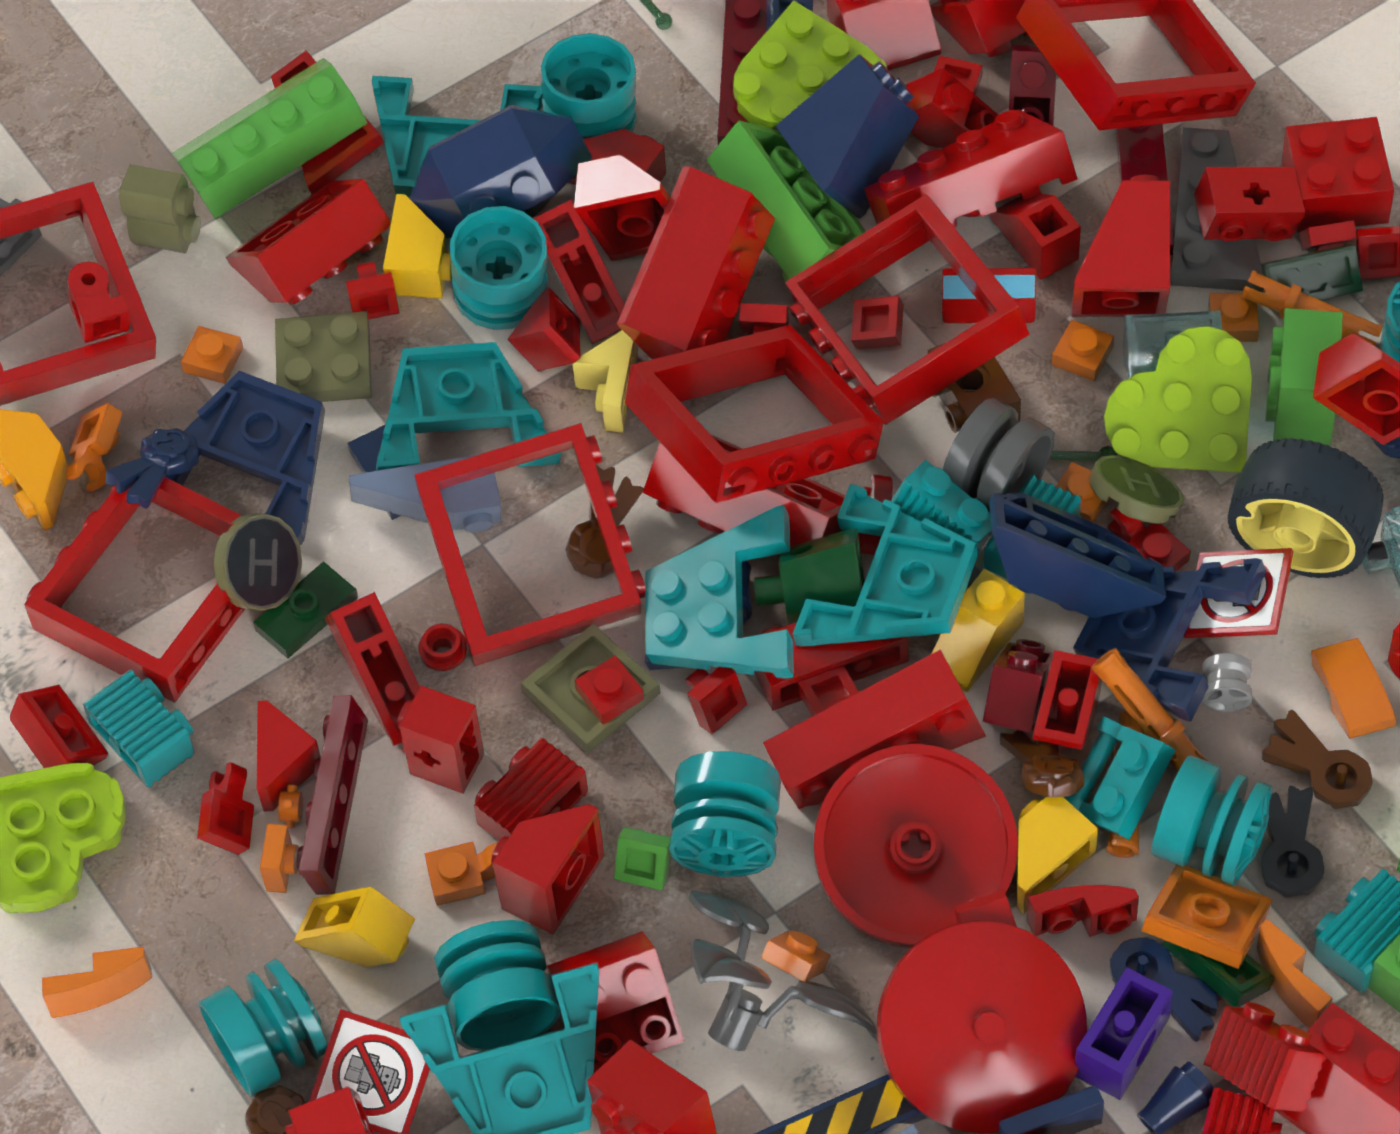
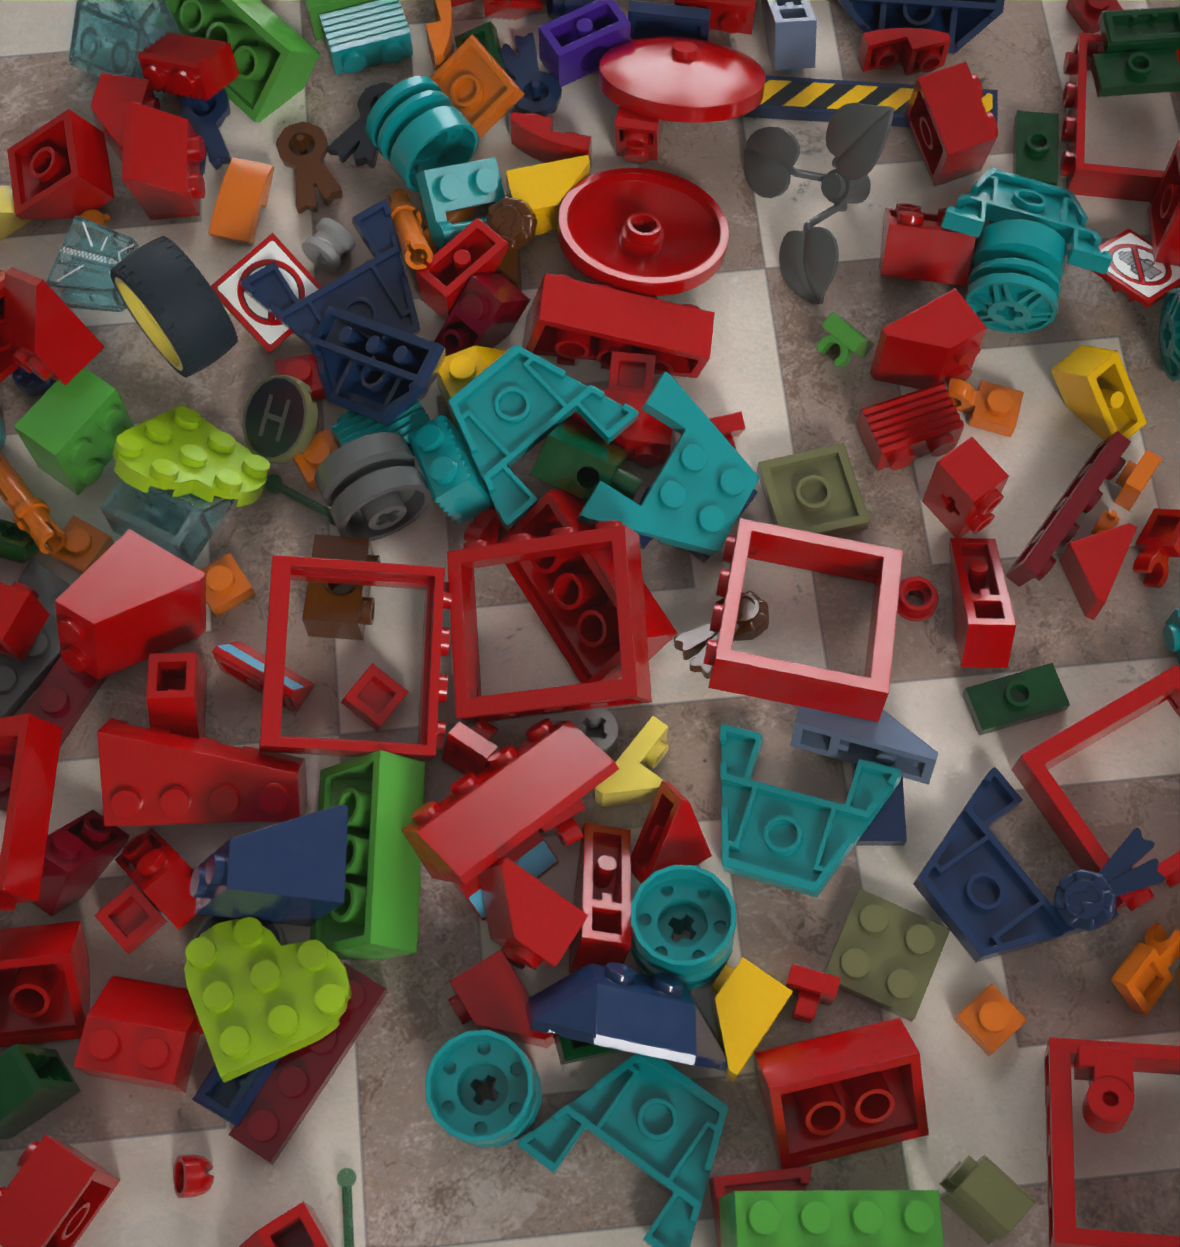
camera: 155 degrees left, 10 degrees up
(258, 562) = (1052, 726): black tile -> none
(609, 689) = (804, 468): red plate -> none
(725, 814) = (773, 314): teal wheel -> none
(796, 955) = (775, 211): orange plate -> none

